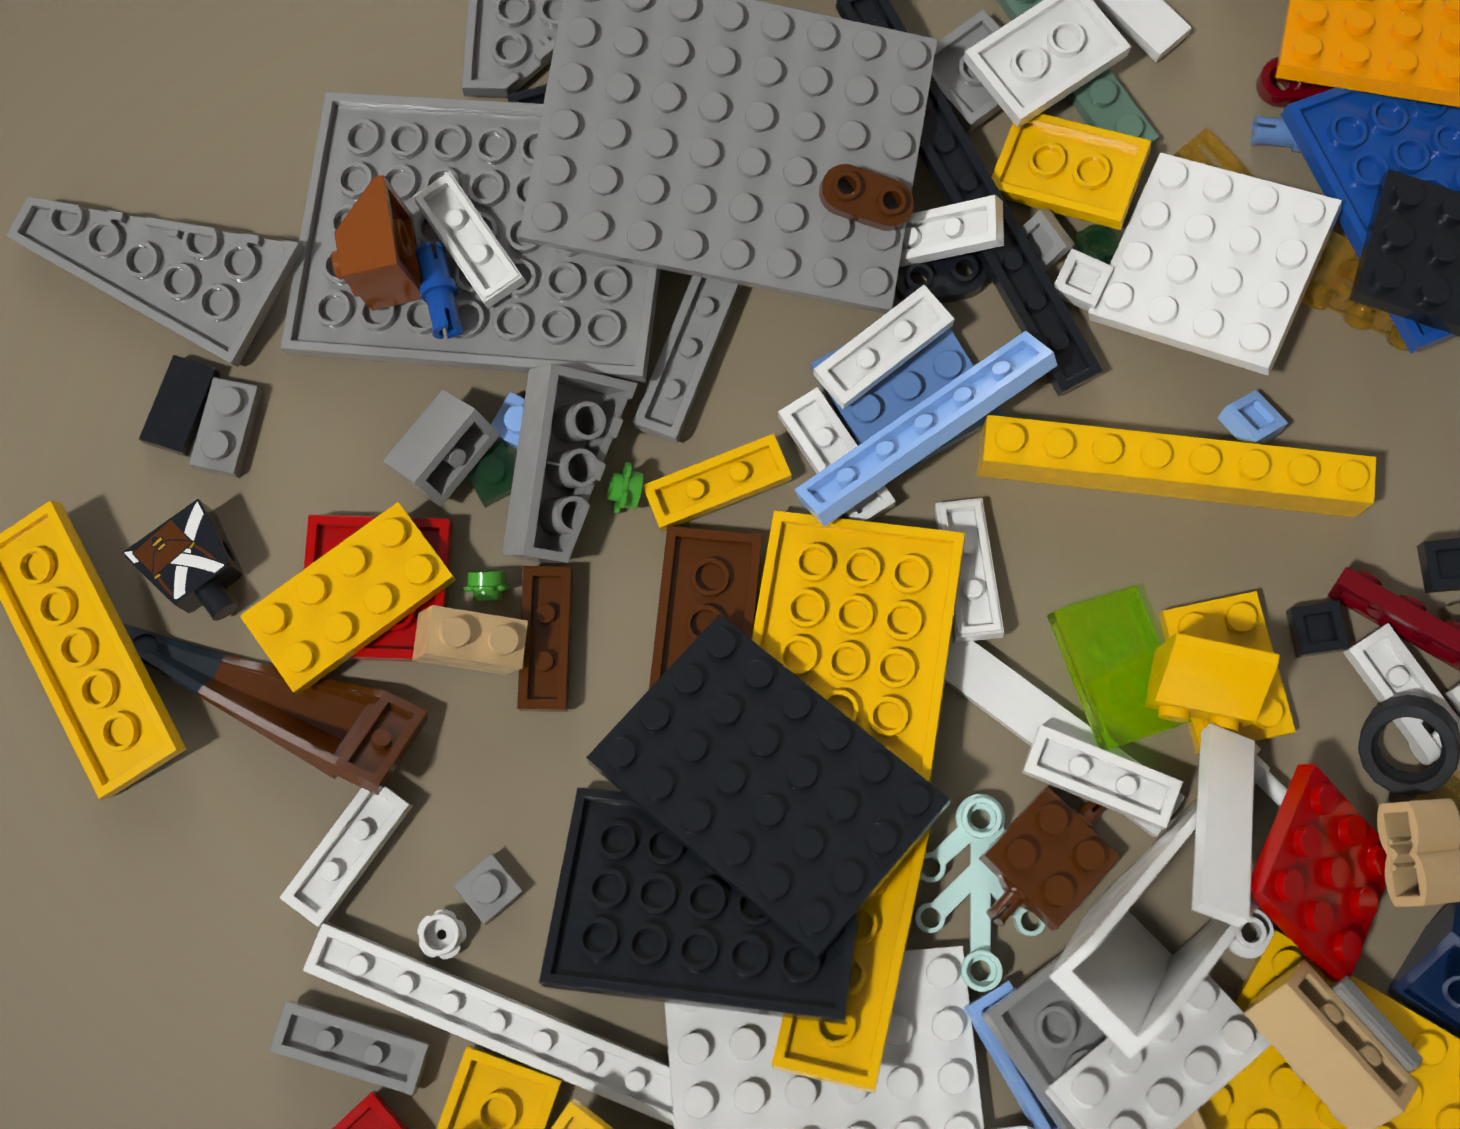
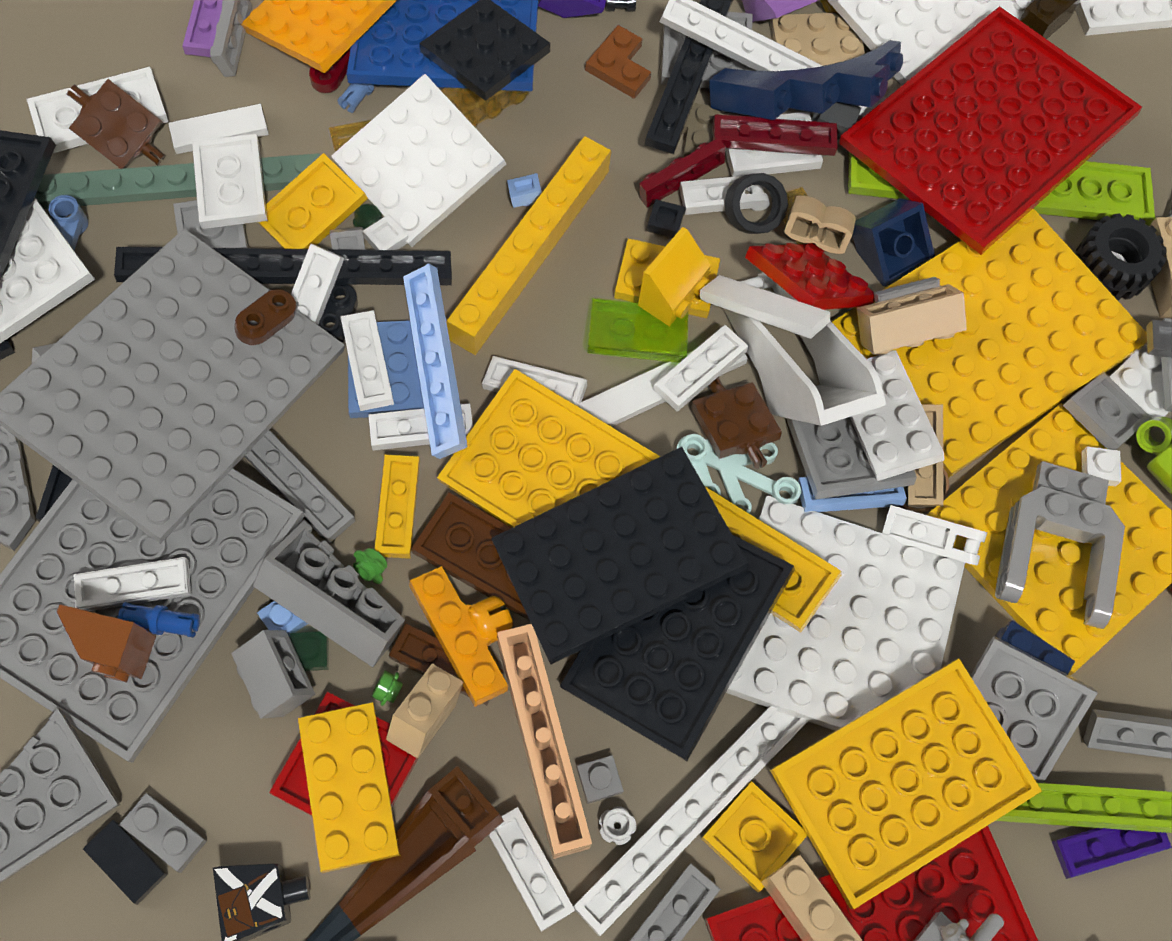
camera: 80 degrees left, 10 degrees down
(492, 800) = (543, 742): none -> light nougat brick
(589, 641) = (464, 632): none -> light orange plate

